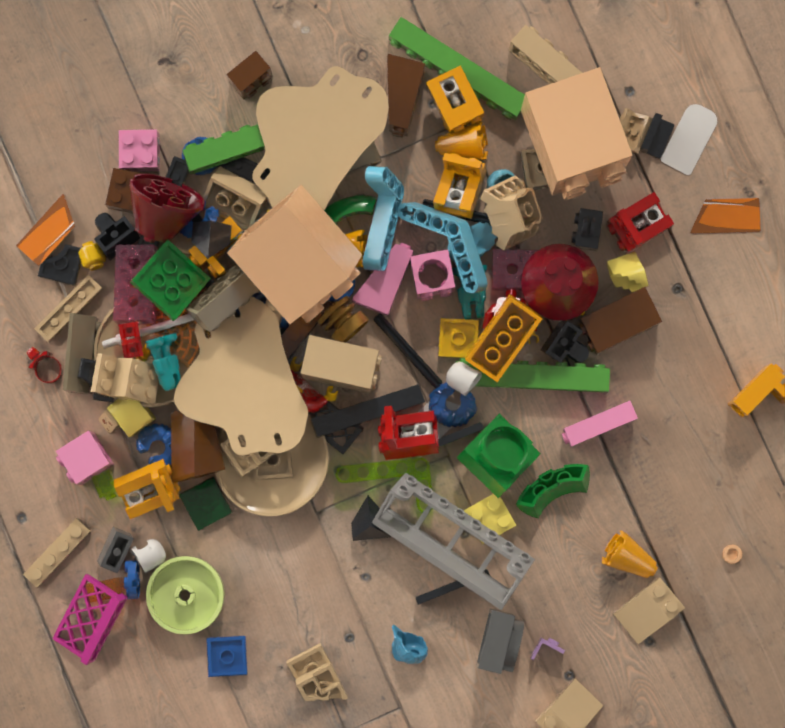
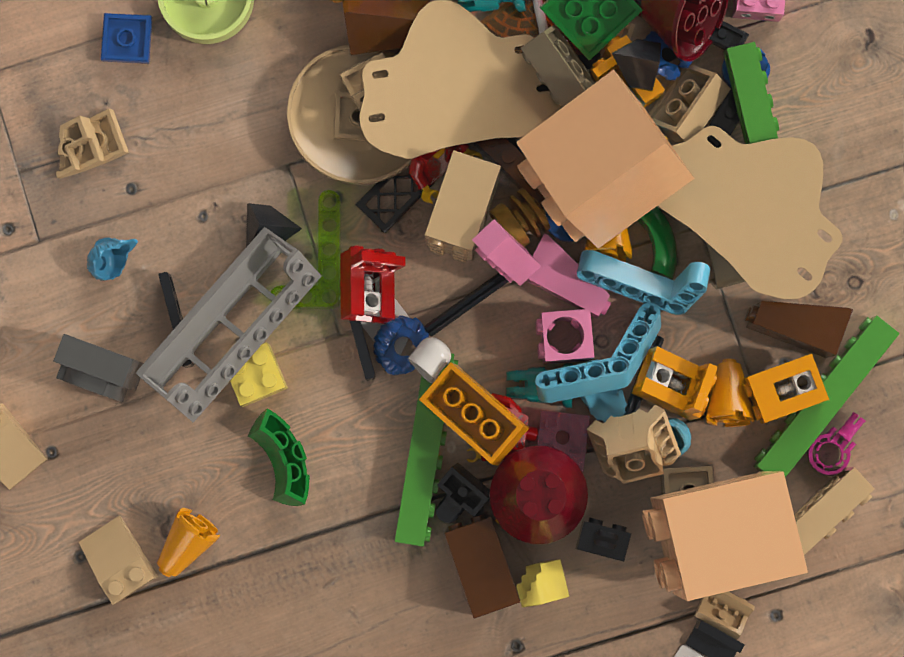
camera: 95 degrees right, 0 degrees up
(205, 503) = (314, 30): dark green slope -> none
(250, 75) = (841, 136): reddish brown brick -> none
(366, 411) = (404, 237): black tile -> none
(375, 325) = (505, 253): none -> bright pink brick
(457, 337) = (485, 360): yellow plate -> none
(481, 50) = (847, 431): none -> dark pink pin
(499, 455) = (329, 393): green container -> none
(550, 642) = (92, 432): lavender bracket -> none
(599, 424) = (355, 525): bright pink slope -> none
(625, 229) = (590, 589): red brick -> none

